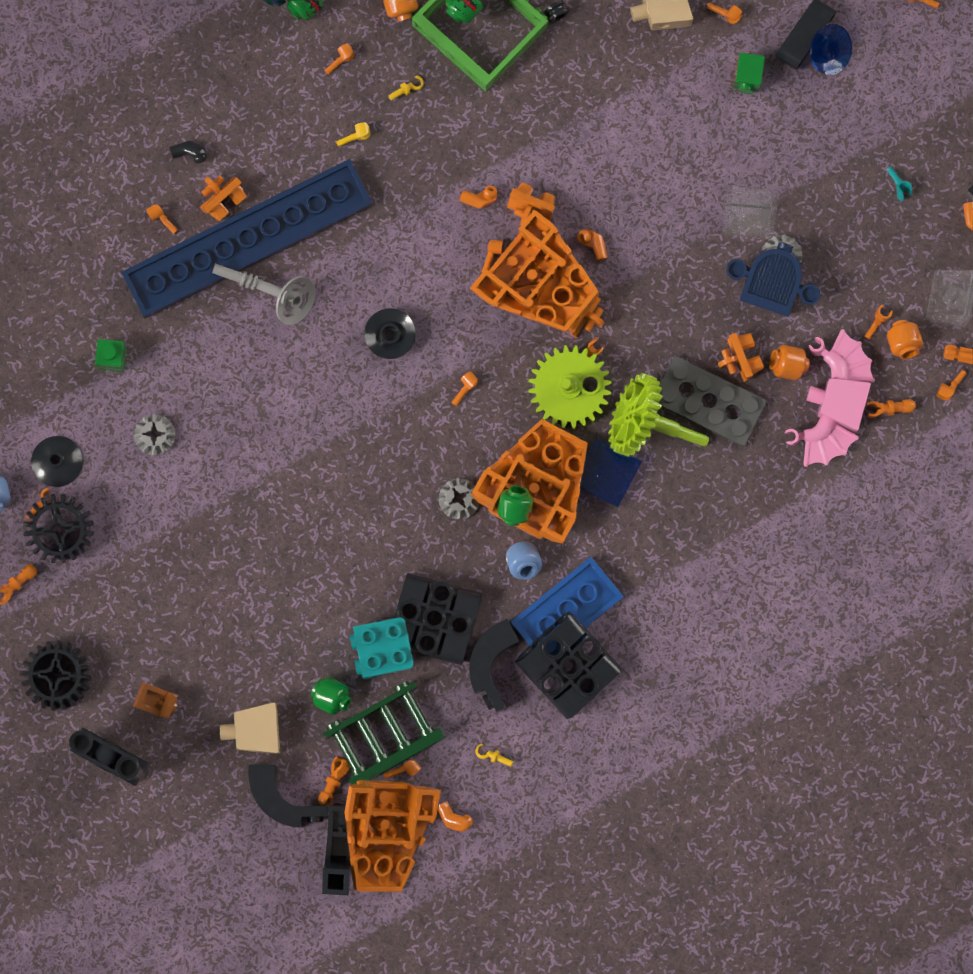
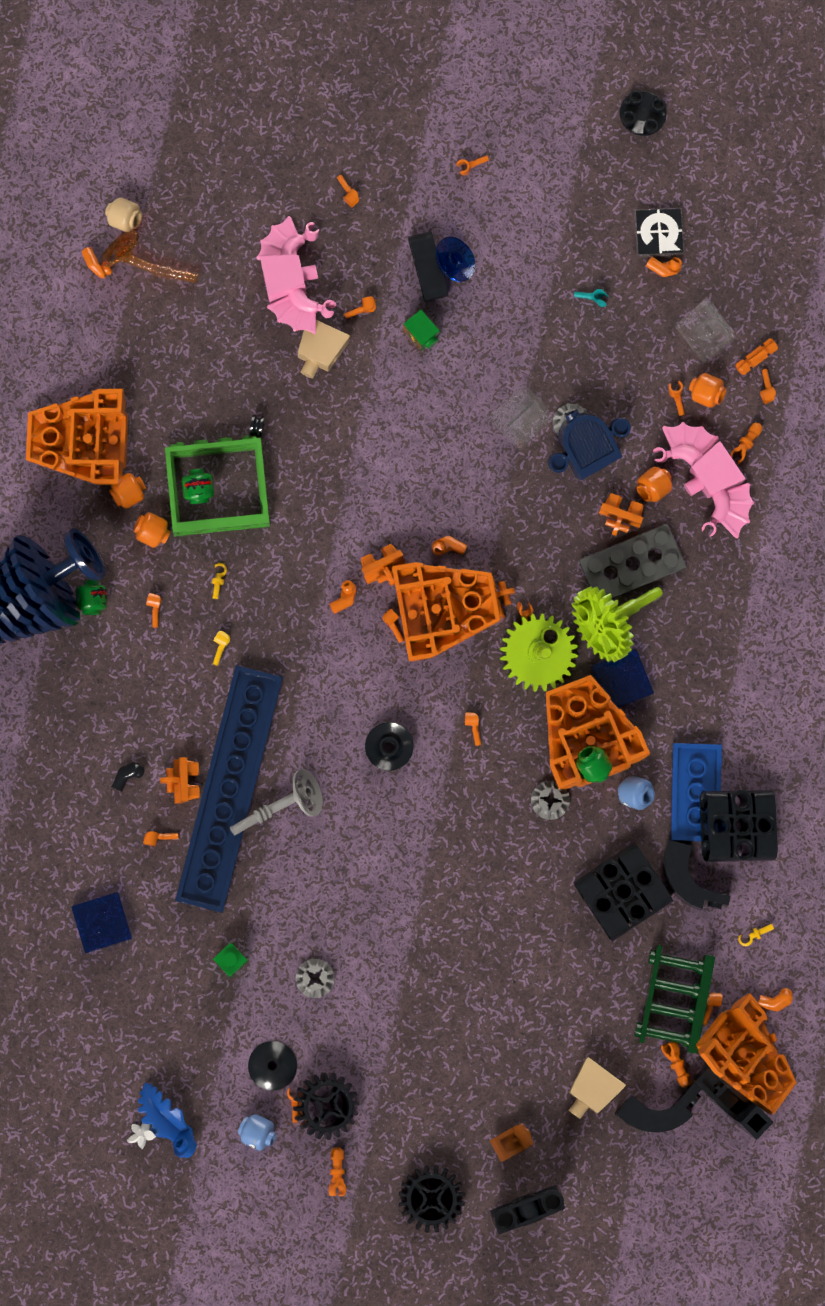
camera: 55 degrees left, 0 degrees up
(55, 231) = (101, 922): none -> clear blue plate
(331, 695) = (615, 1012): green head -> none
(381, 648) = (613, 947): teal bracket -> none

